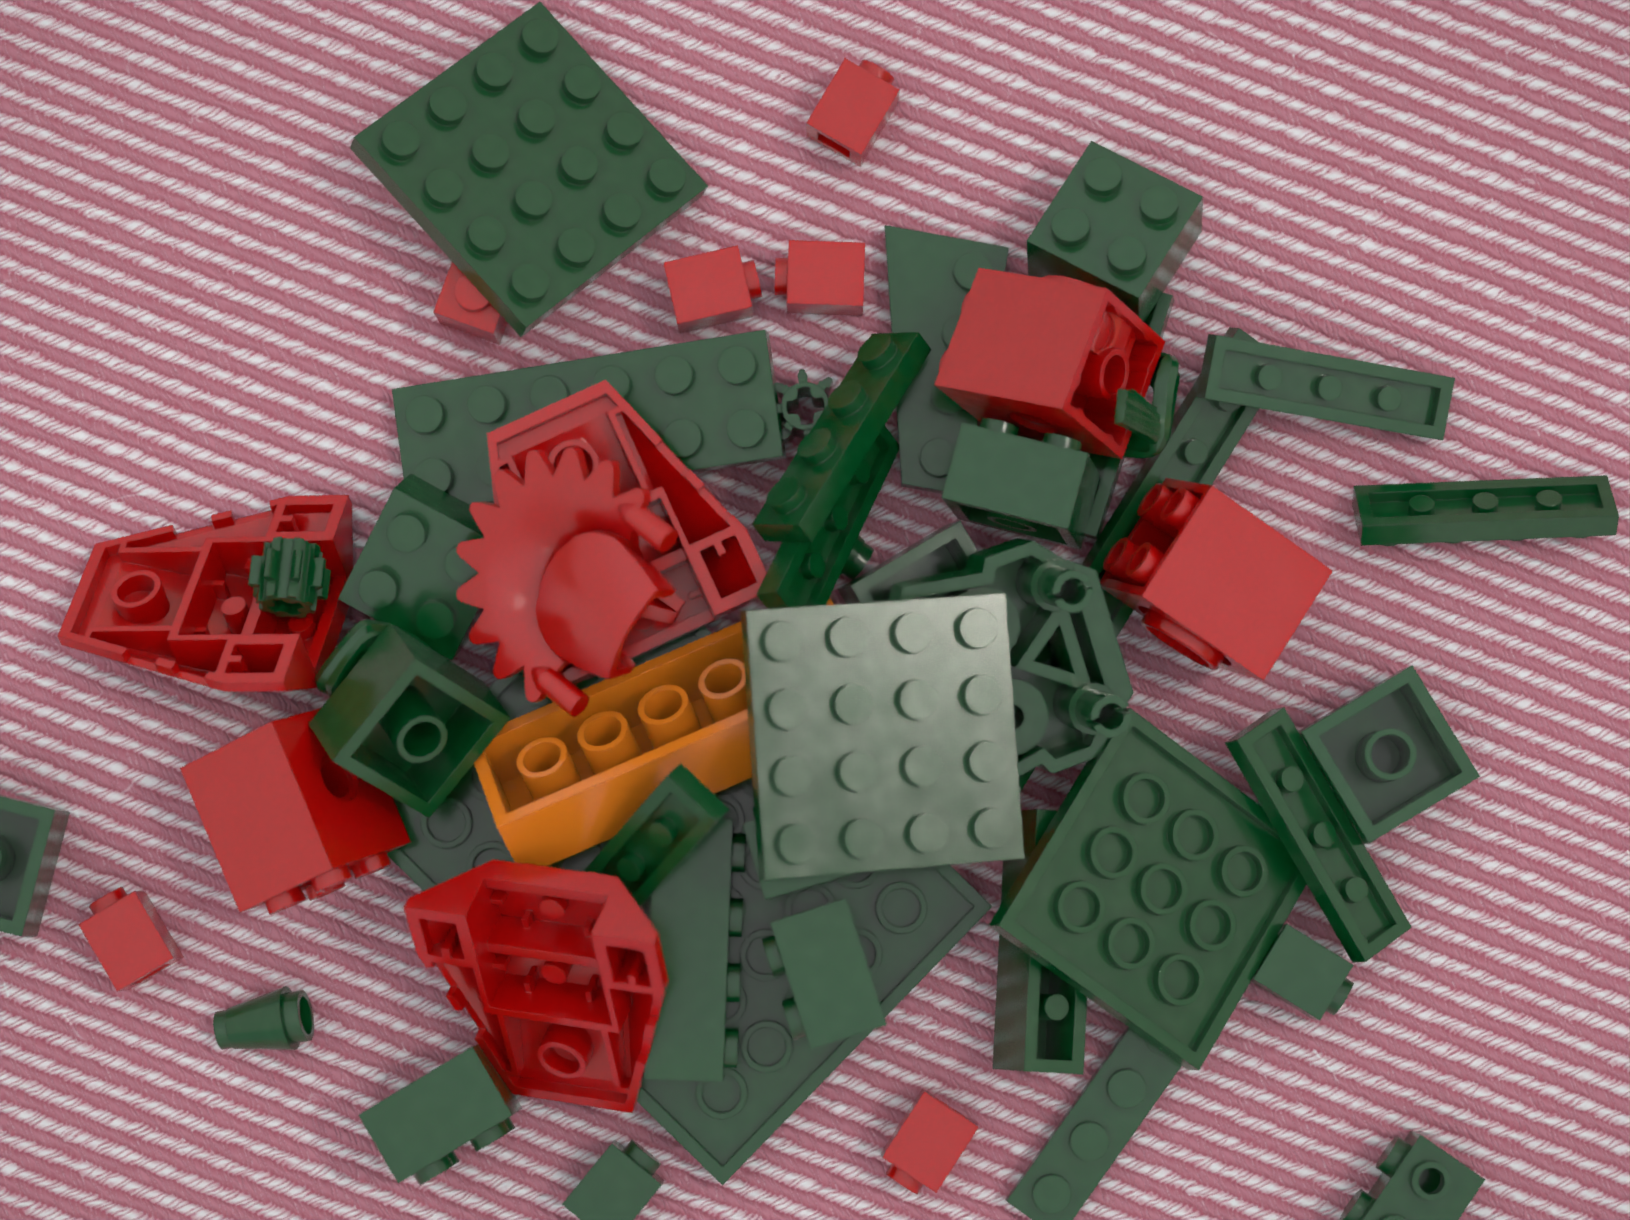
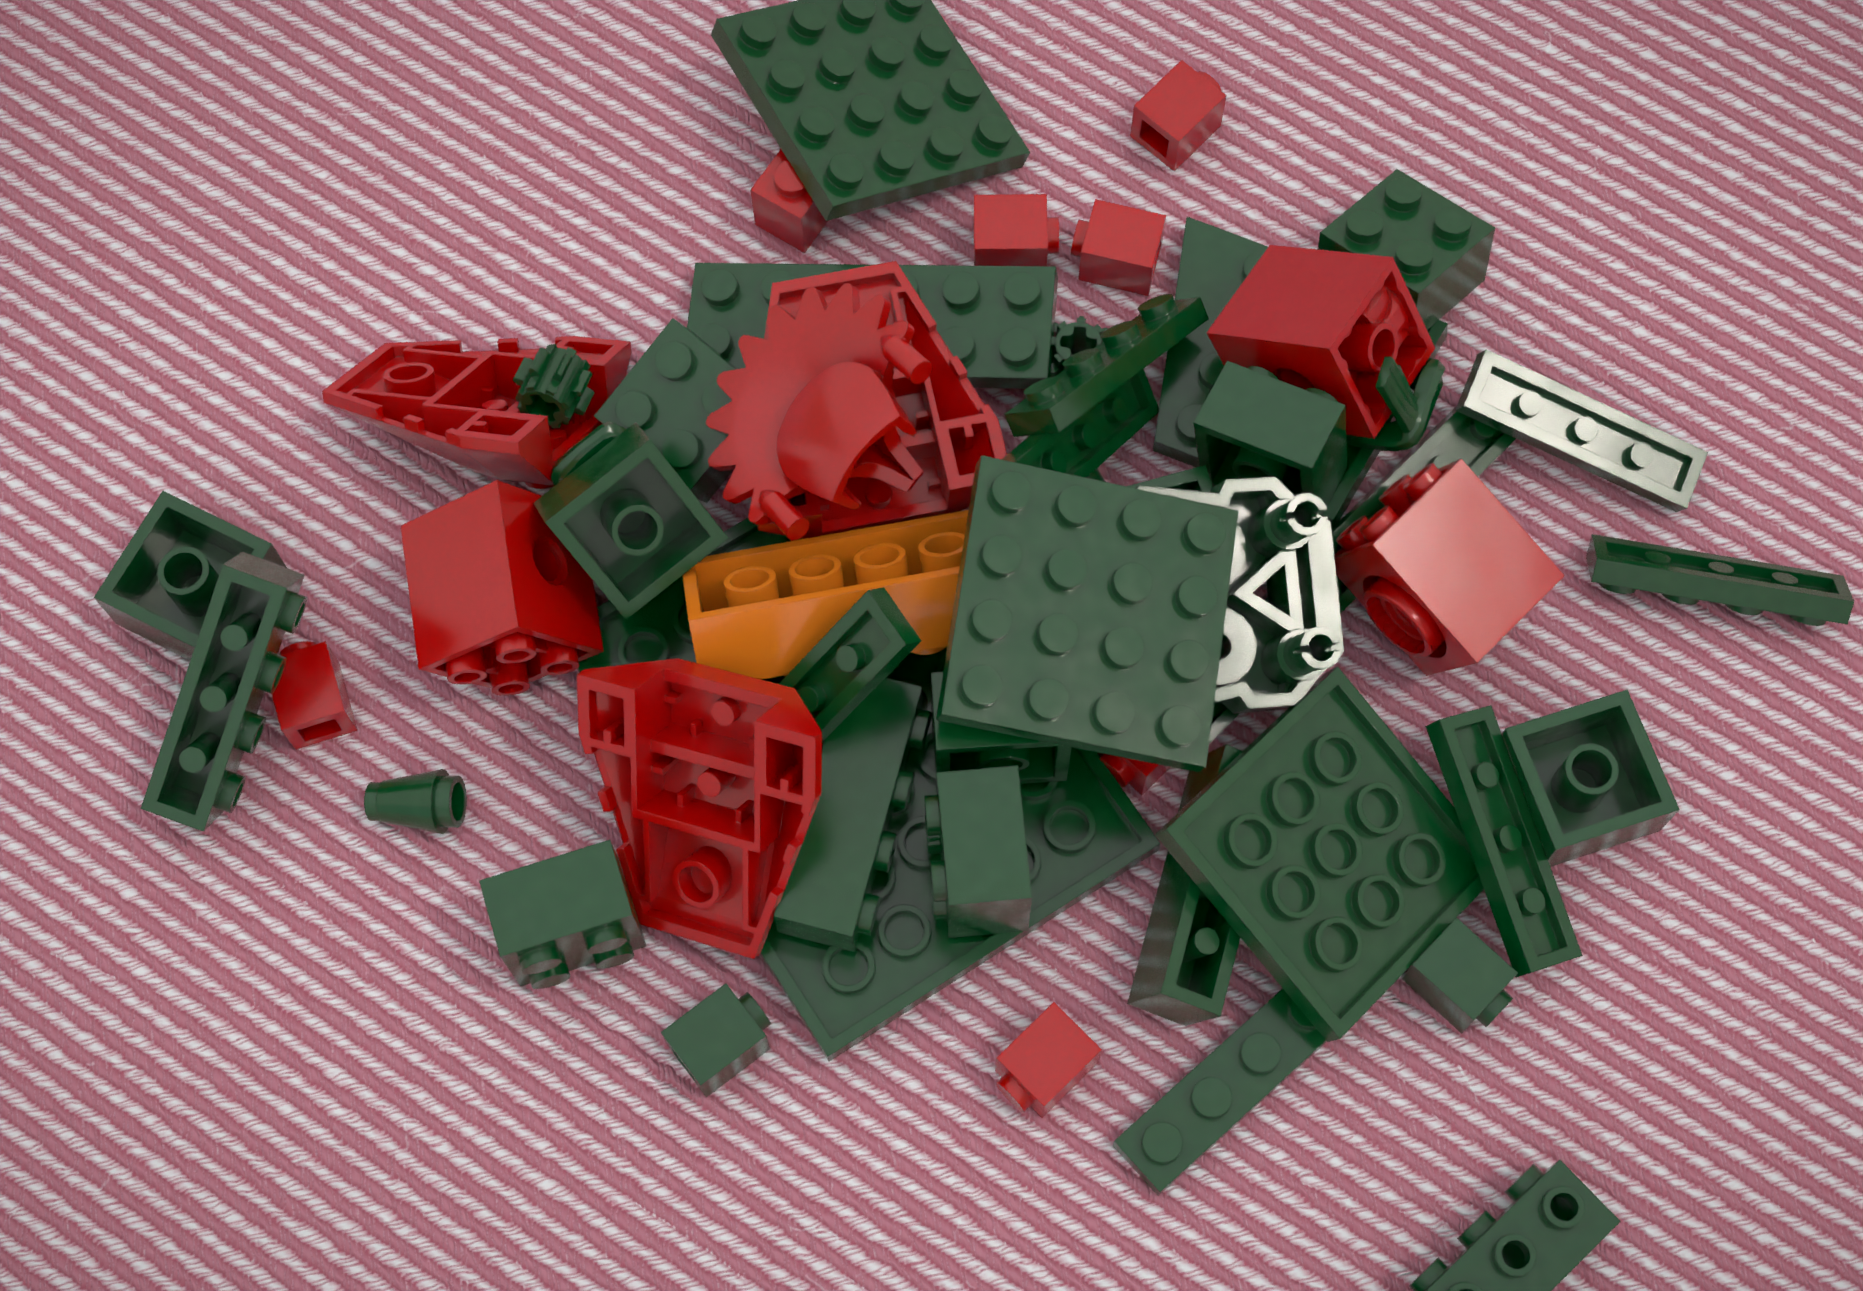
camera: 15 degrees right, 15 degrees down
(54, 973) = (223, 691): none -> dark green brick

